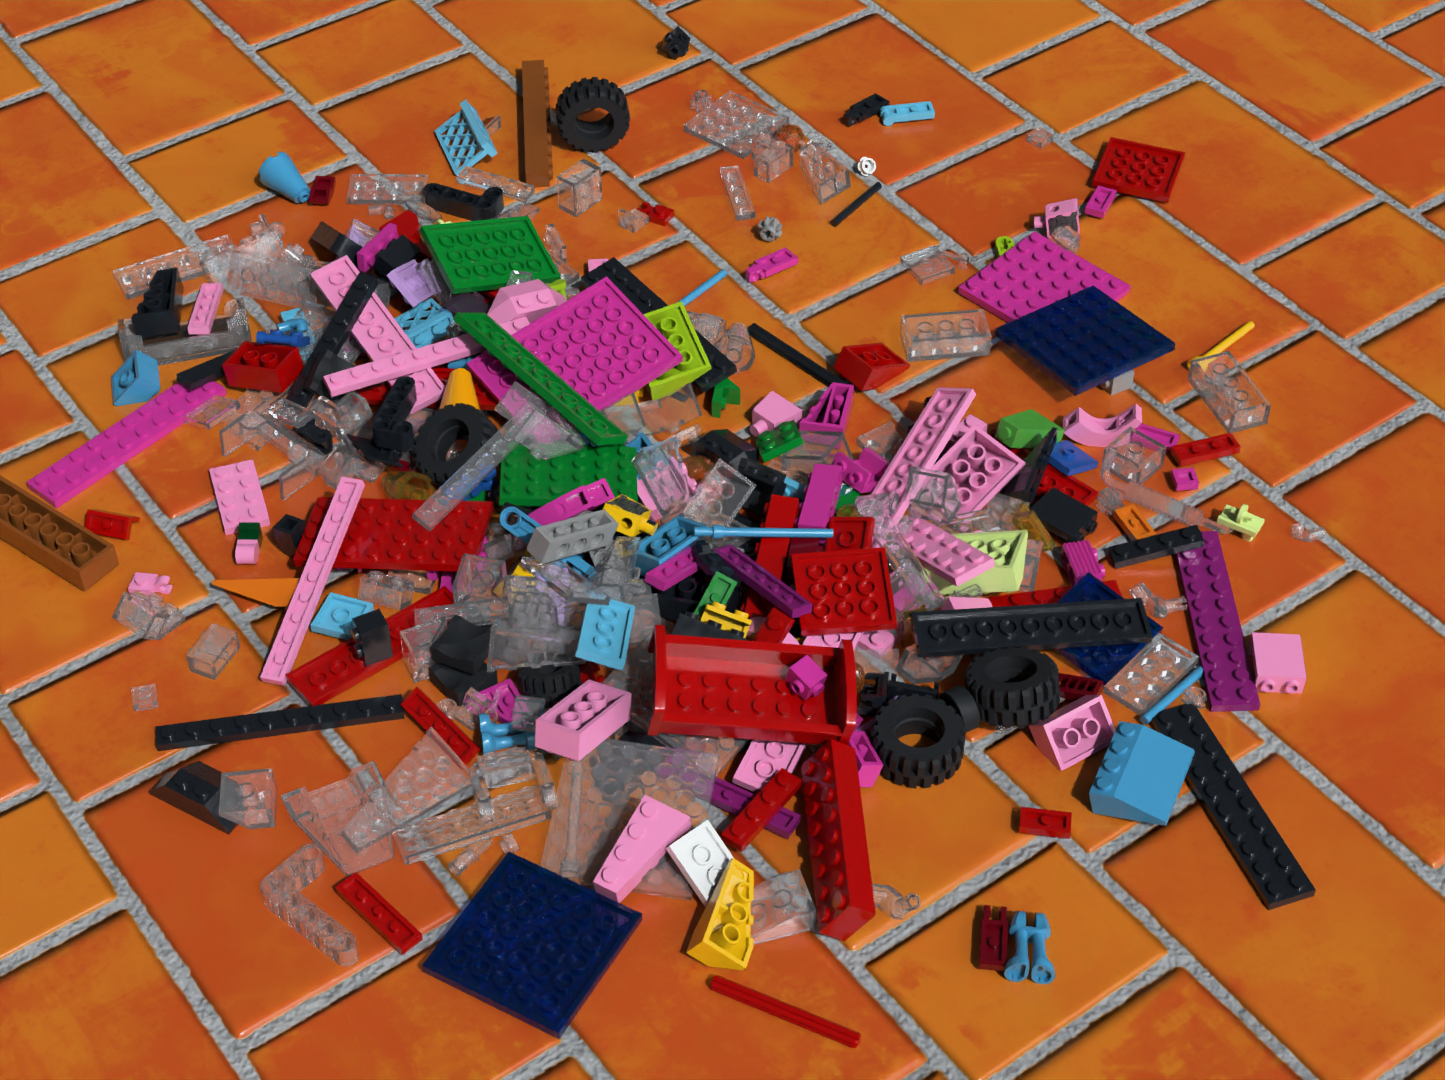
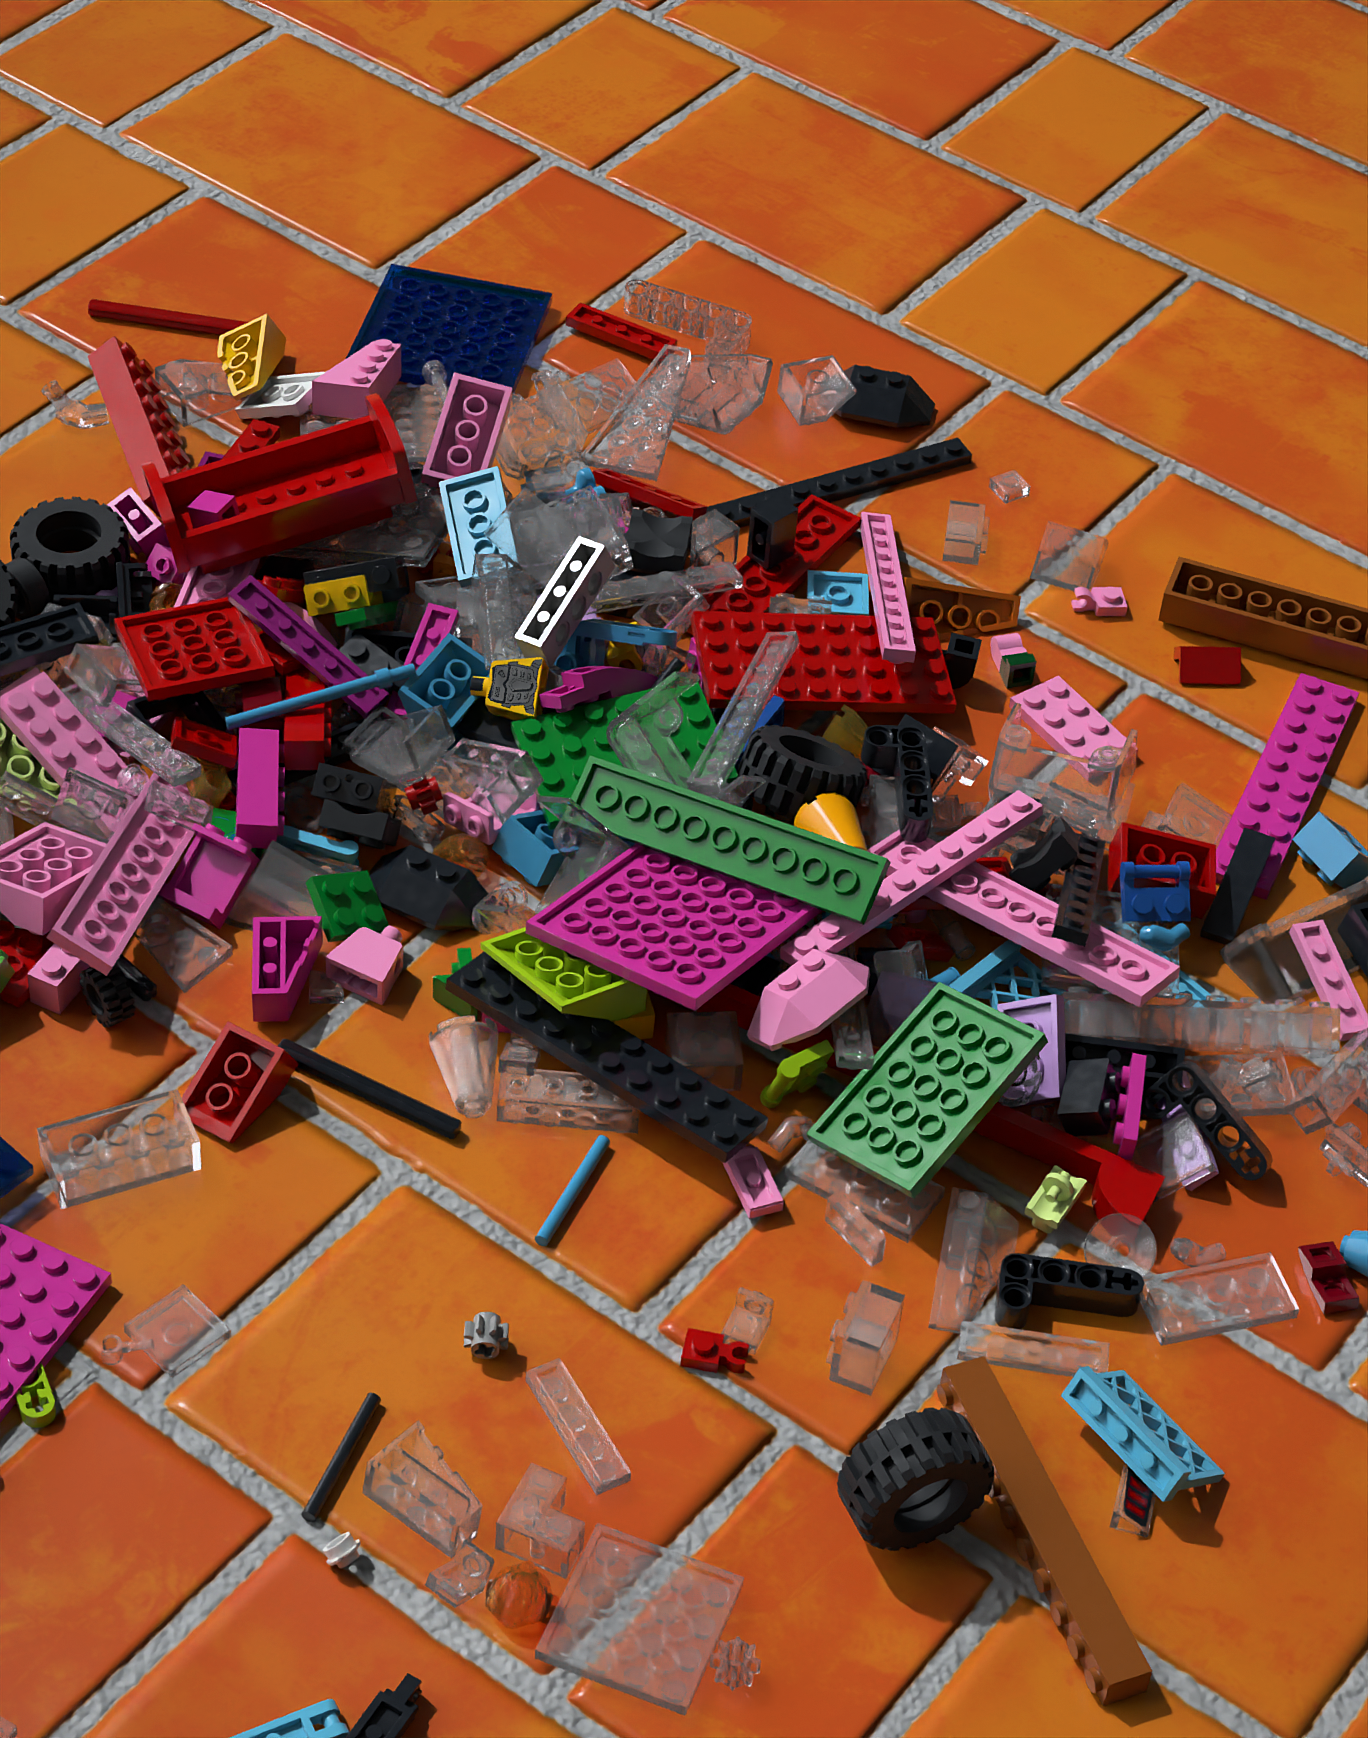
camera: 160 degrees right, 0 degrees up
(771, 264) = (459, 1264): dark pink hinge -> none

